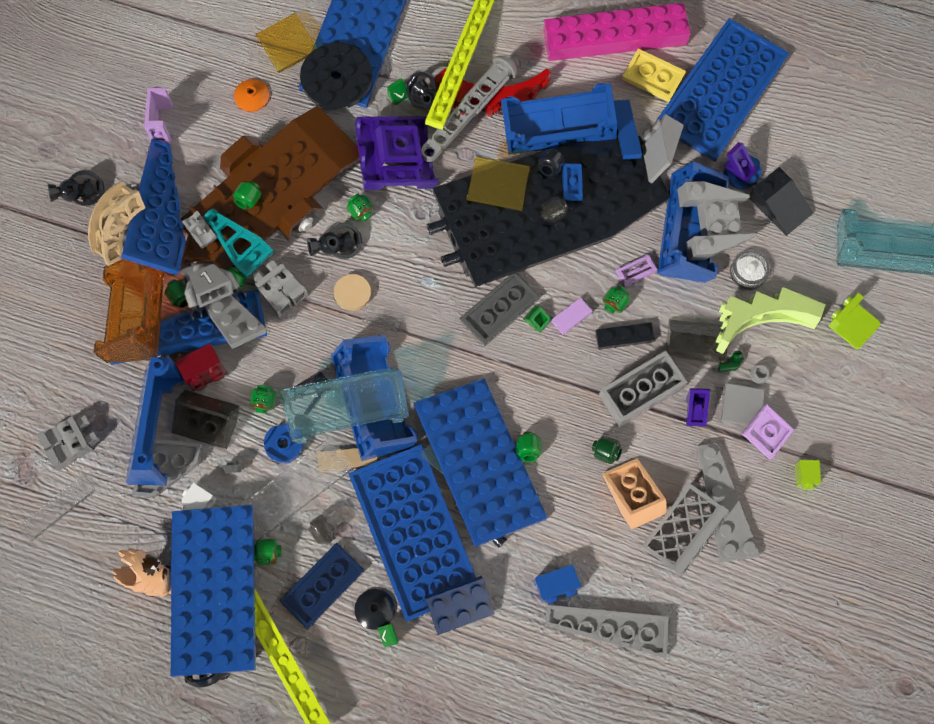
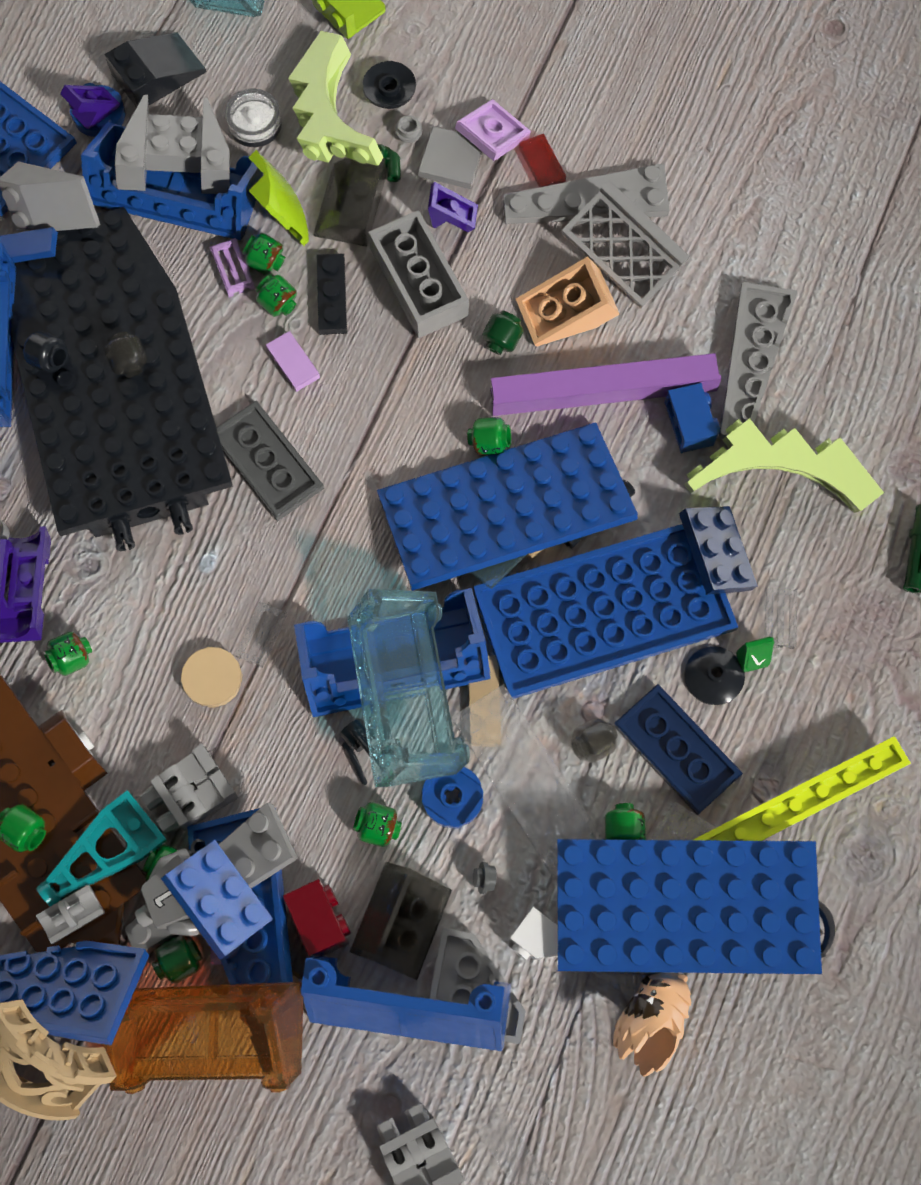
camera: 85 degrees left, 0 degrees up
(203, 304) = (217, 899): none -> plate
(336, 242) = (124, 701): black piece -> none
(498, 183) = (66, 433): clear yellow piece -> none
(527, 683) = (831, 467): none -> yellowish green arch
(537, 318) = (289, 409): green slope -> none
(572, 182) = (83, 326): blue plate -> none
(576, 523) = (601, 384): none -> medium lavender tile
(646, 288) = (264, 253): none -> green head
(687, 291) = (279, 198): none -> lime slope
(749, 469) = (542, 161): none -> clear red tile
(798, 350) = (389, 76): none -> black dish
(808, 474) = (557, 90): lime brick -> none

